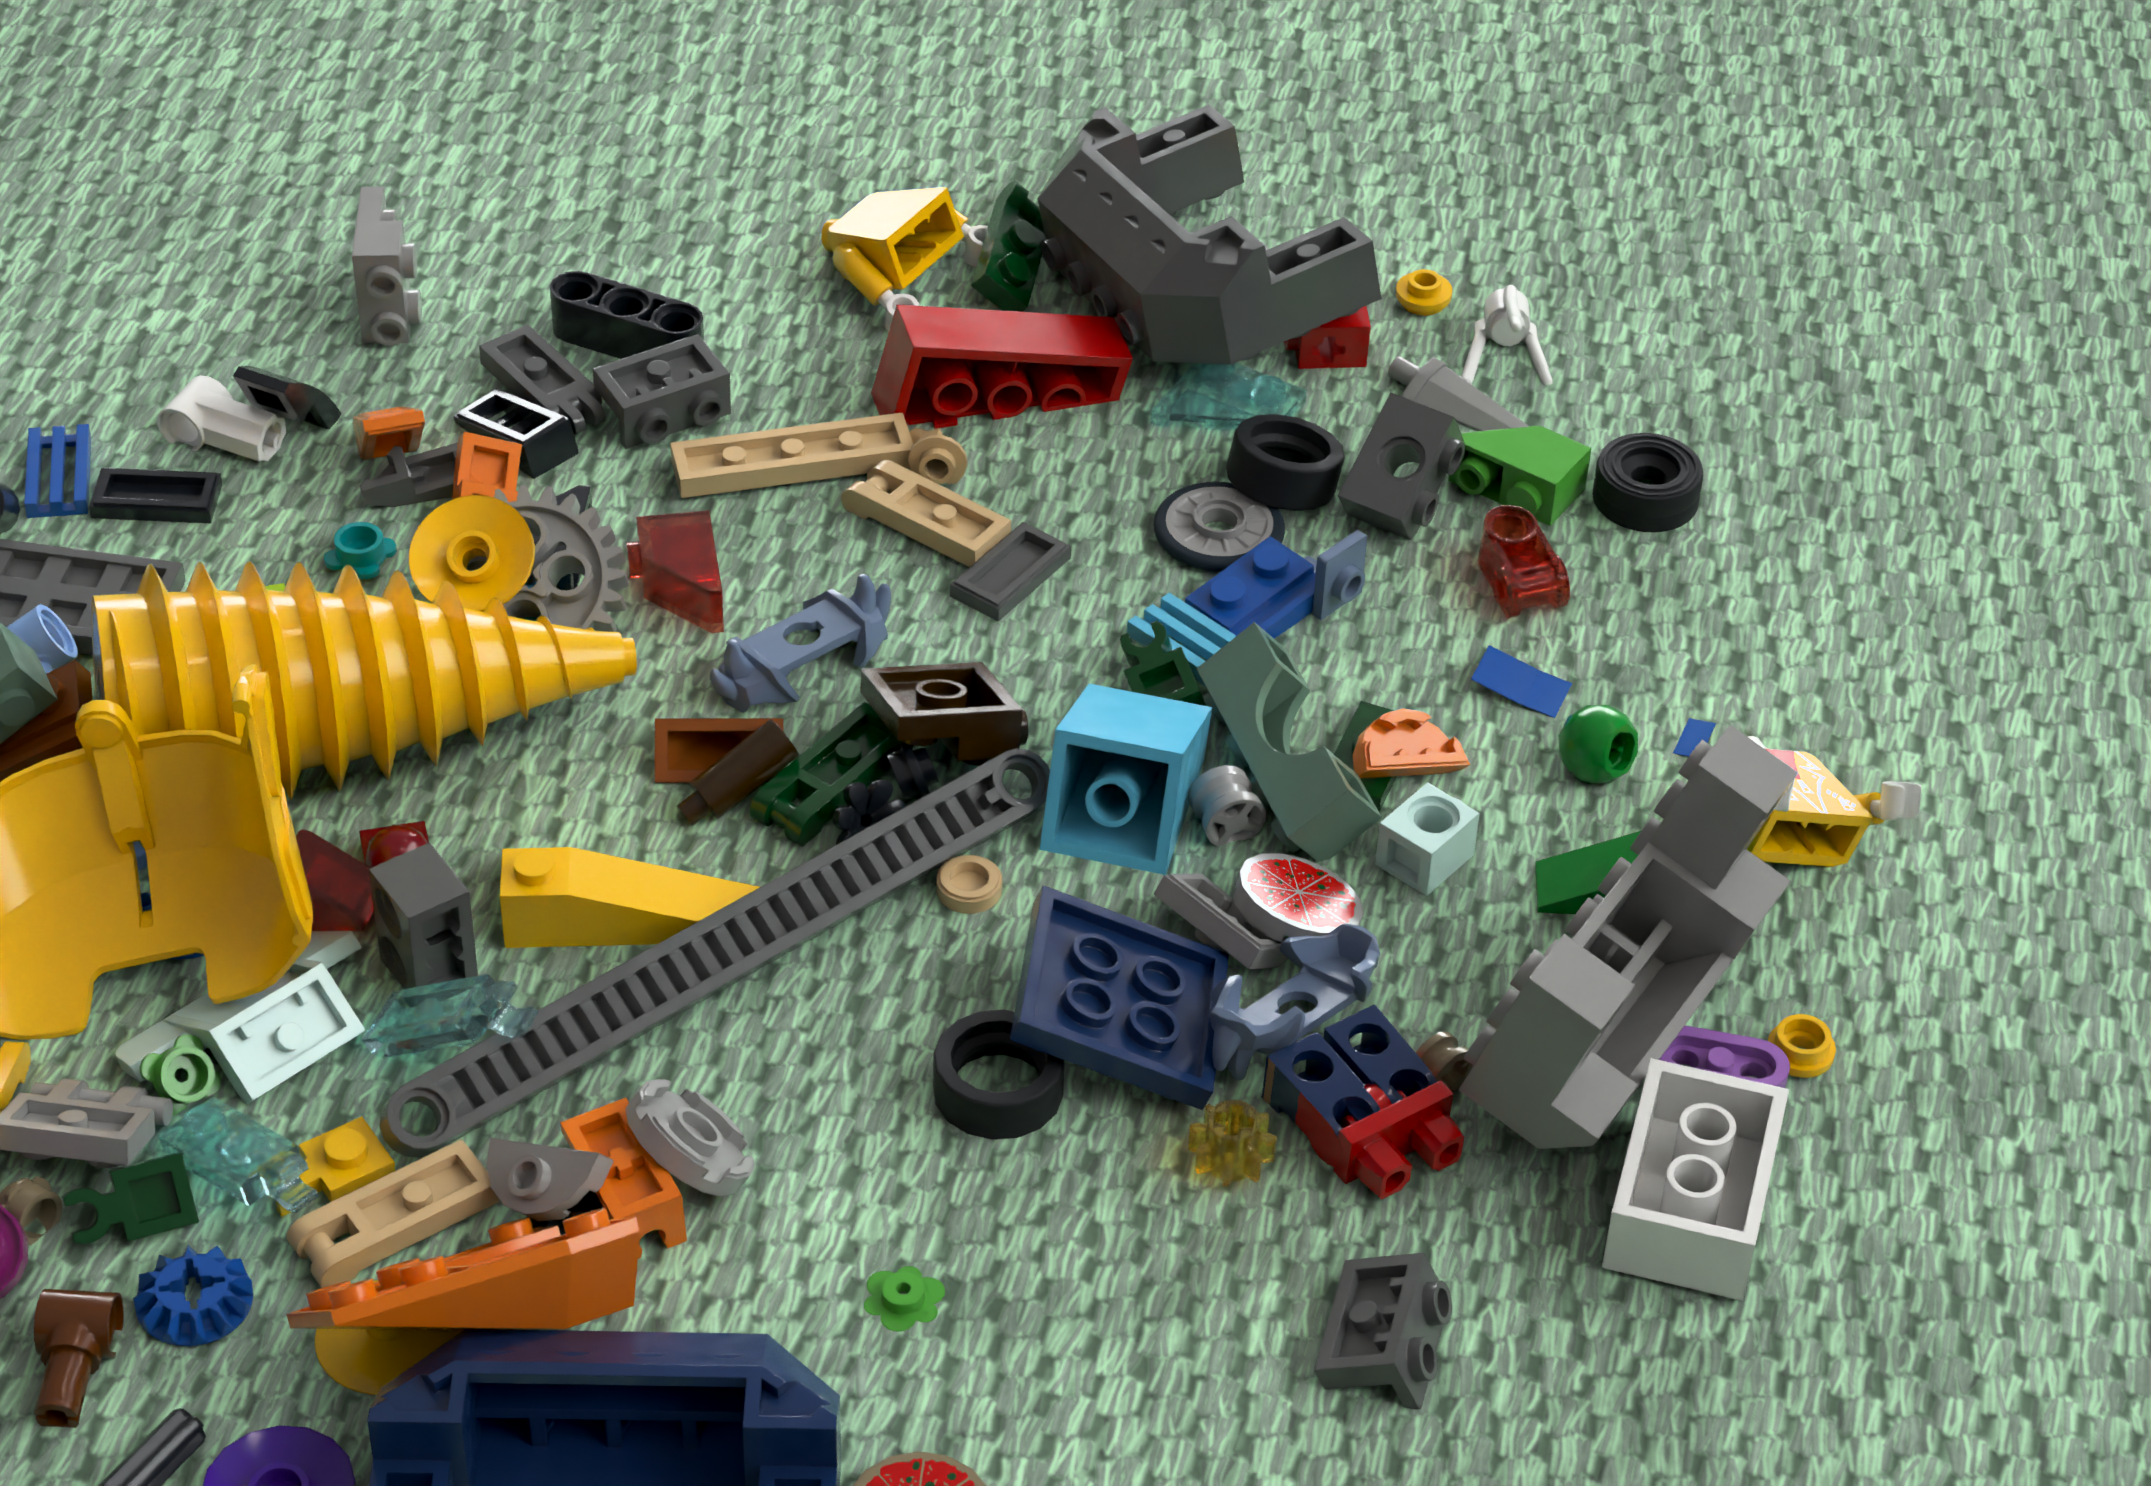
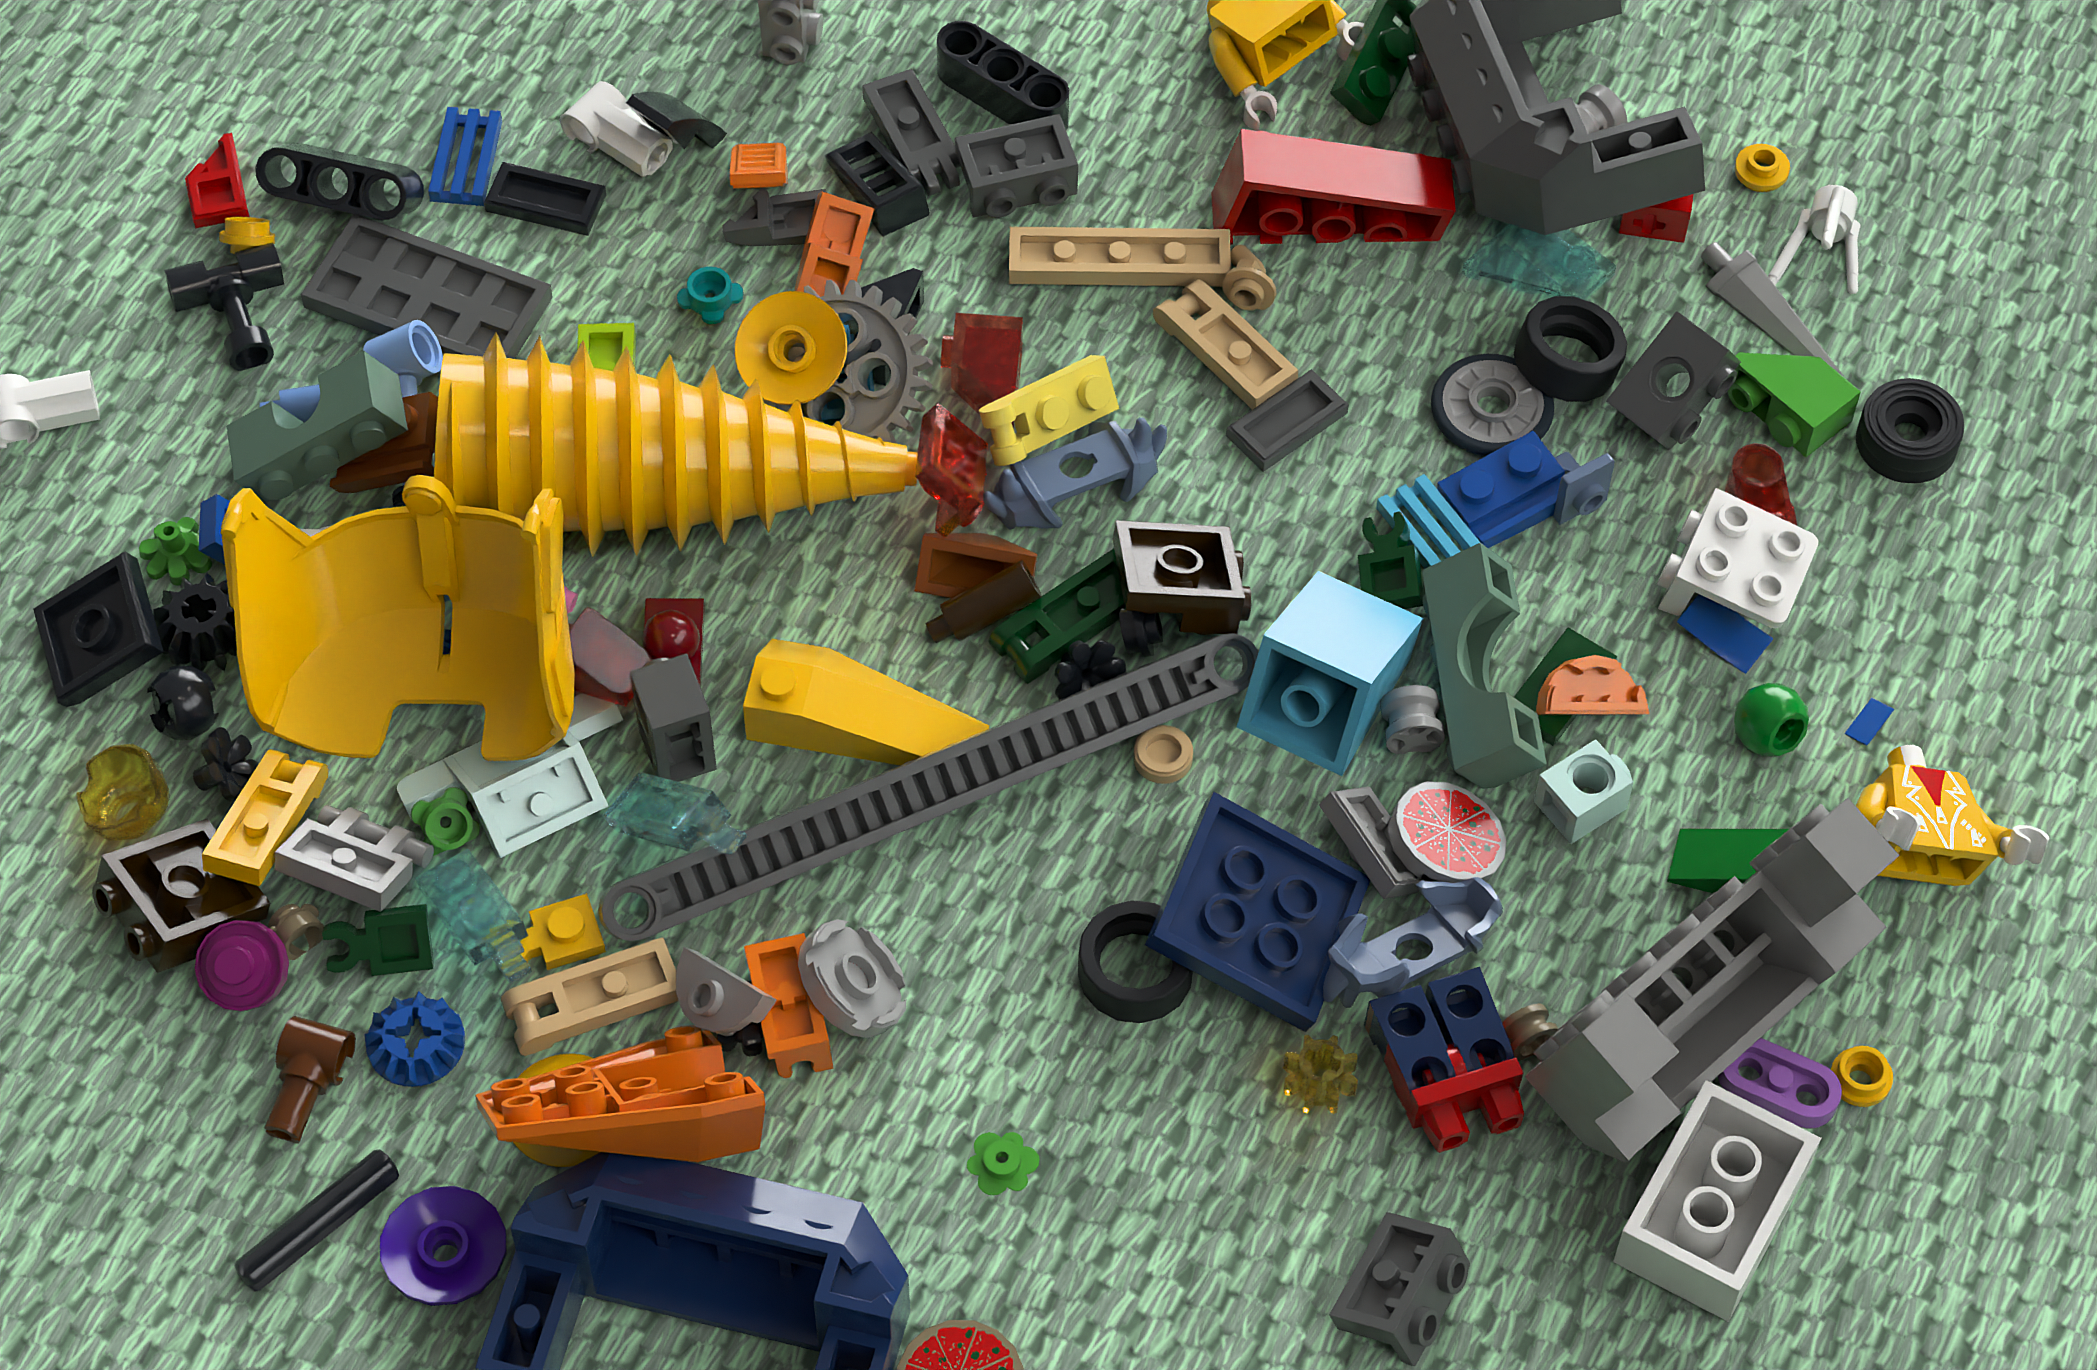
camera: 15 degrees right, 15 degrees up
(673, 651) = (951, 468): none -> clear red bracket
(760, 587) = (1049, 409): none -> light yellow plate
(1518, 606) = (1738, 560): none -> white bracket

